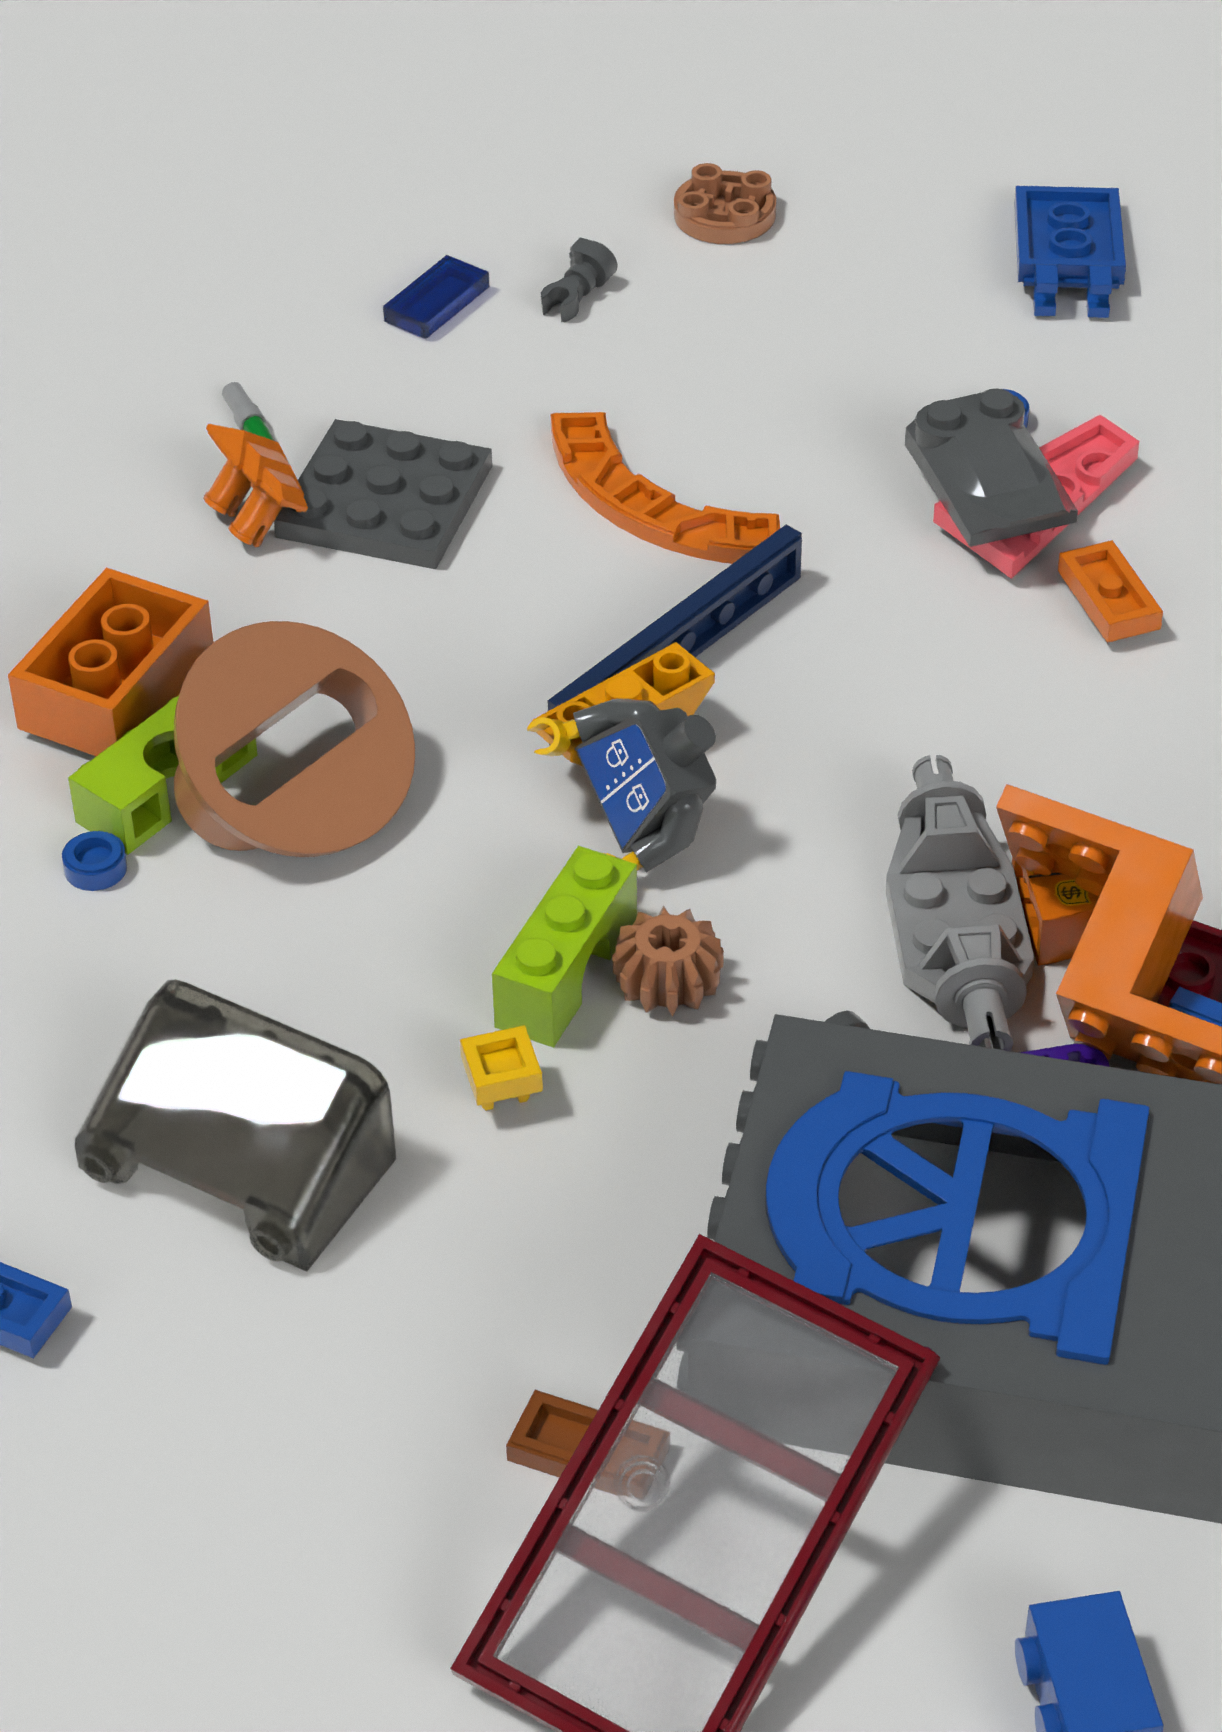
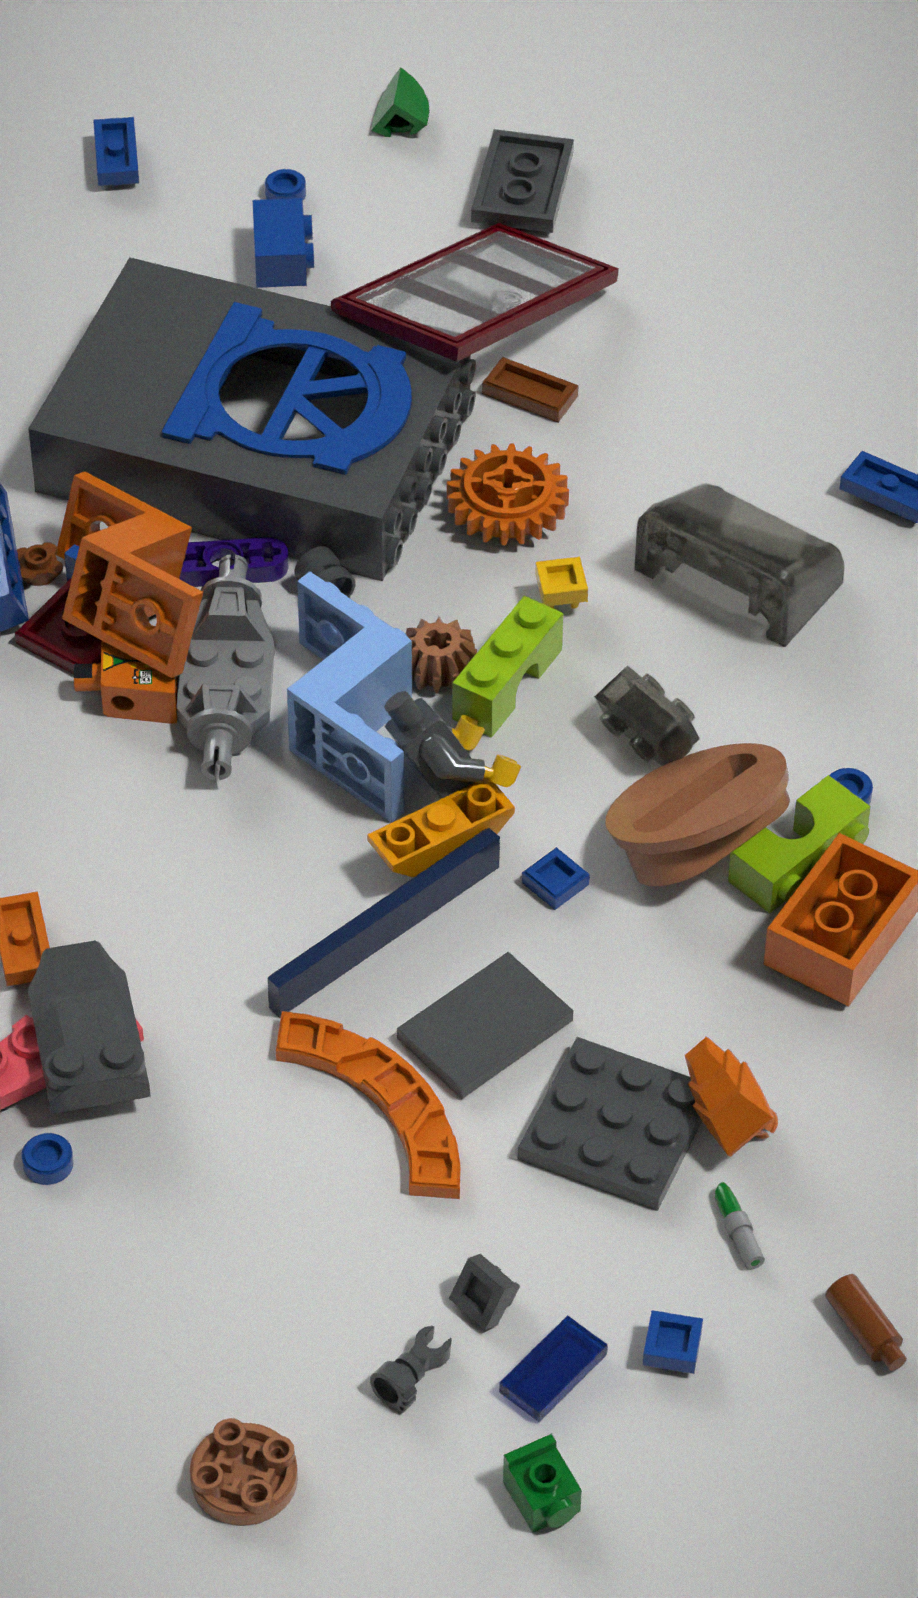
camera: 175 degrees left, 5 degrees up
(119, 347) = (866, 1321): none -> dark orange cylinder
(317, 313) = (672, 1342): none -> blue plate
(366, 882) = (648, 718): none -> clear smoke brick
(438, 191) = (541, 1484): none -> green brick
(475, 725) = (555, 878): none -> blue tile
(510, 327) = (483, 1291): none -> dark grey tile
(542, 567) = (485, 1024): none -> dark grey tile
(599, 1214) = (507, 494): none -> orange gear
(774, 853) = (344, 696): none -> light blue bracket

